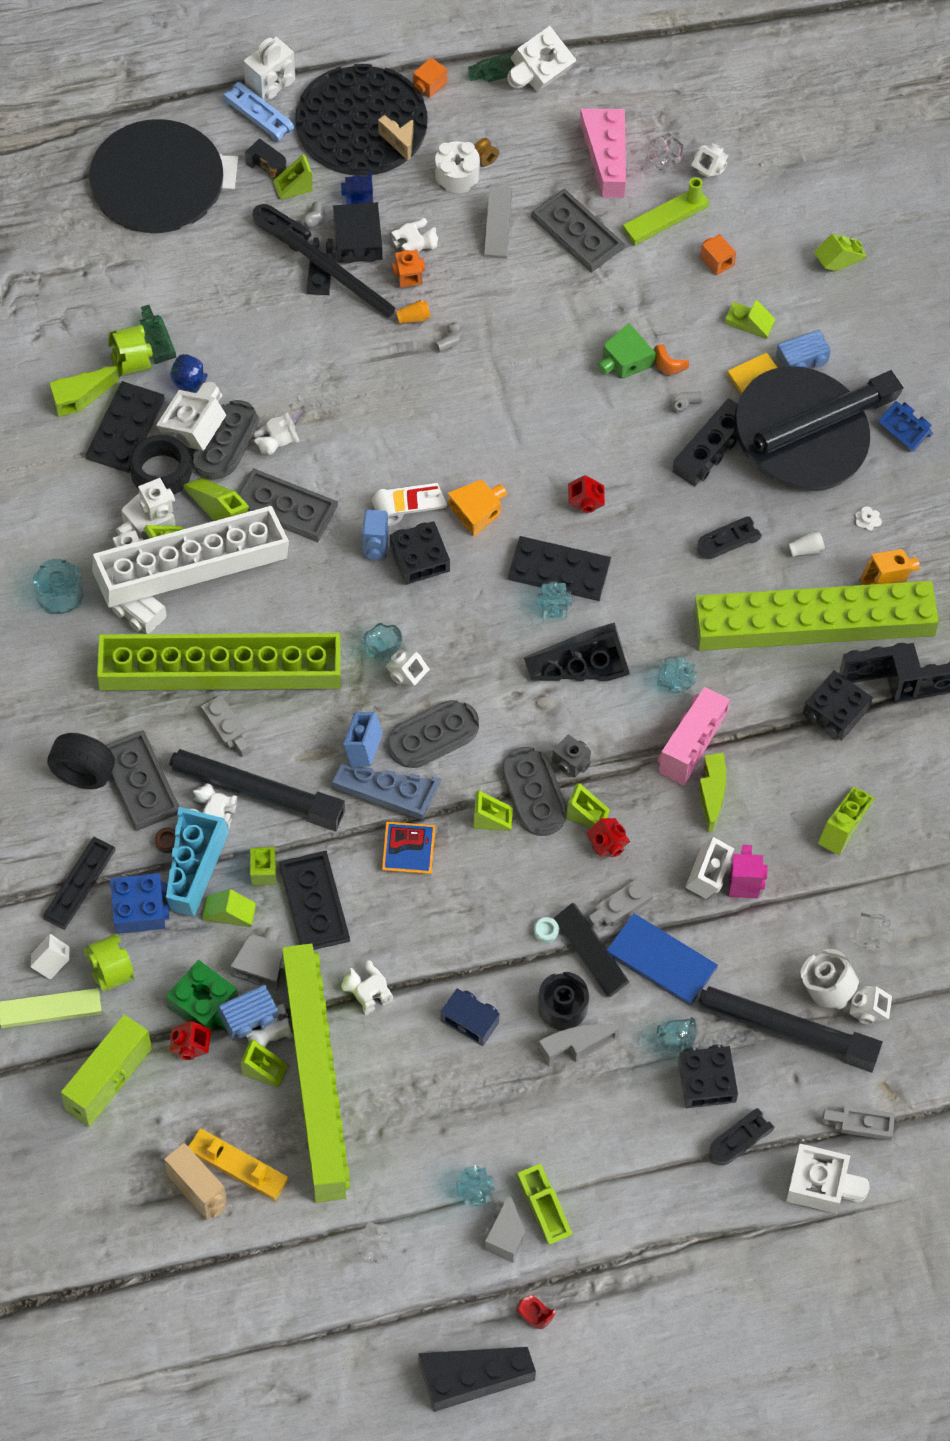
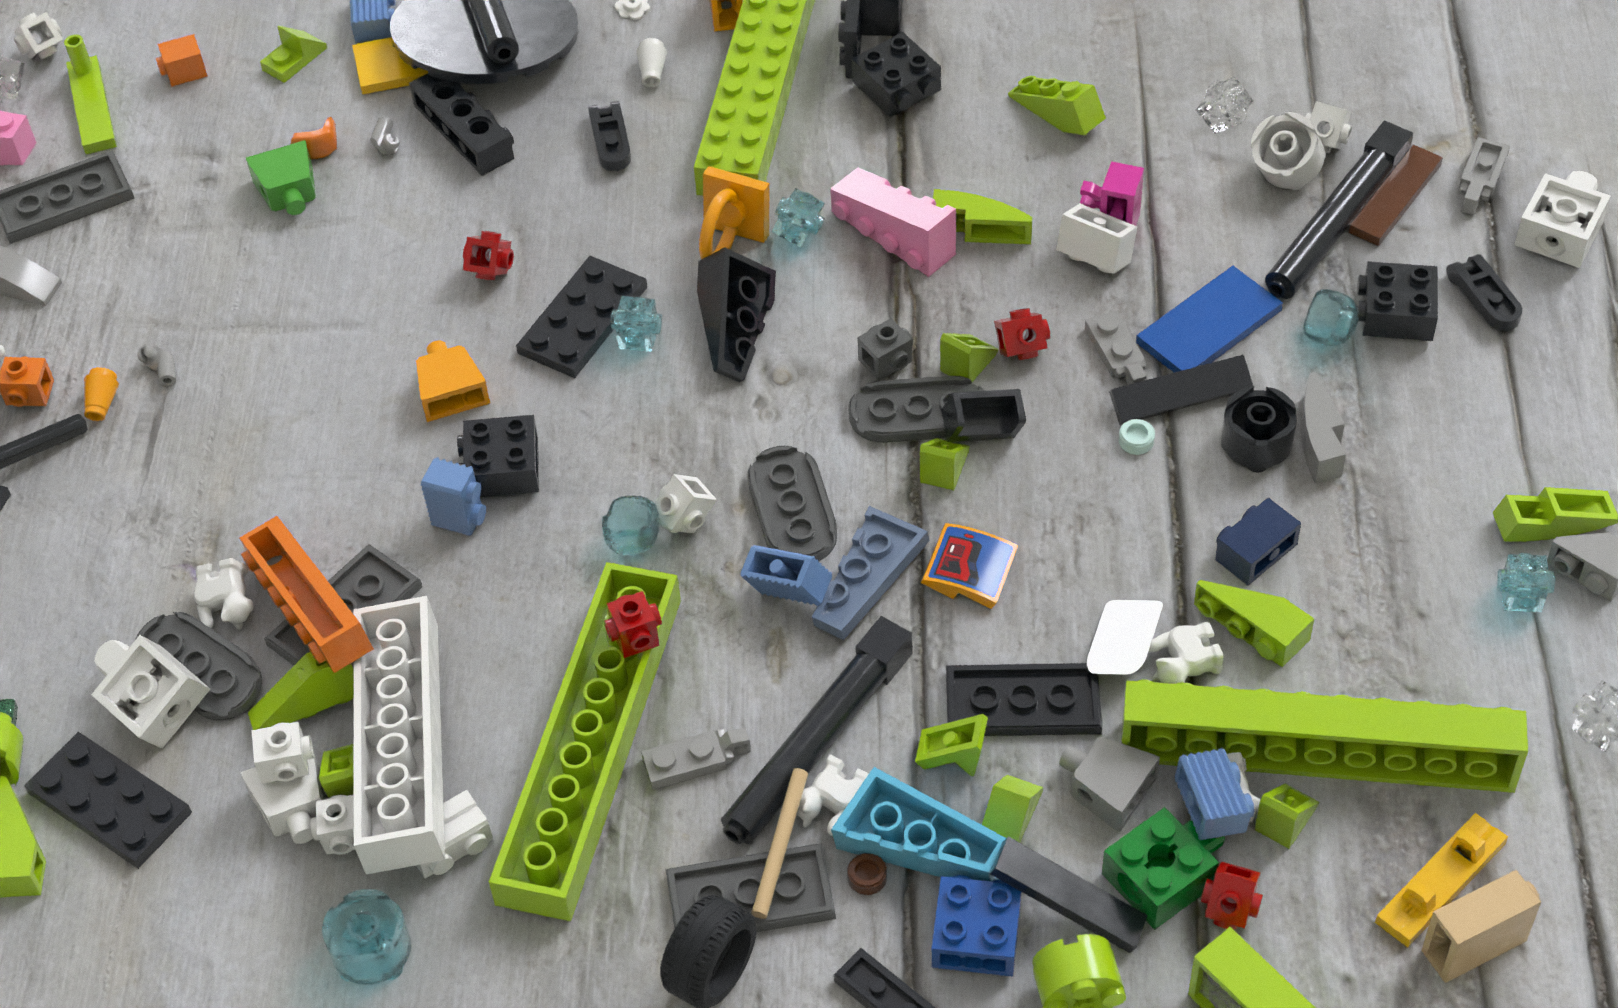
camera: 70 degrees left, 10 degrees down
(161, 446) = (192, 728): black tyre -> none
(166, 946) = (1069, 894): none -> tile
(169, 783) = (779, 843): none -> tan bar
(188, 373) = (60, 685): clear blue hair -> none
(275, 475) = (306, 596): none -> orange piece
(286, 656) = (633, 624): none -> red brick
(372, 948) = (1123, 636): none -> white sticker
(403, 1033) = (1260, 619): none -> lime slope
(408, 500) = (405, 461): white door -> none
(526, 826) = (983, 415): none -> black panel
(667, 632) = (733, 206): none -> light orange tile
(824, 1066) = (1395, 195): none -> reddish brown tile

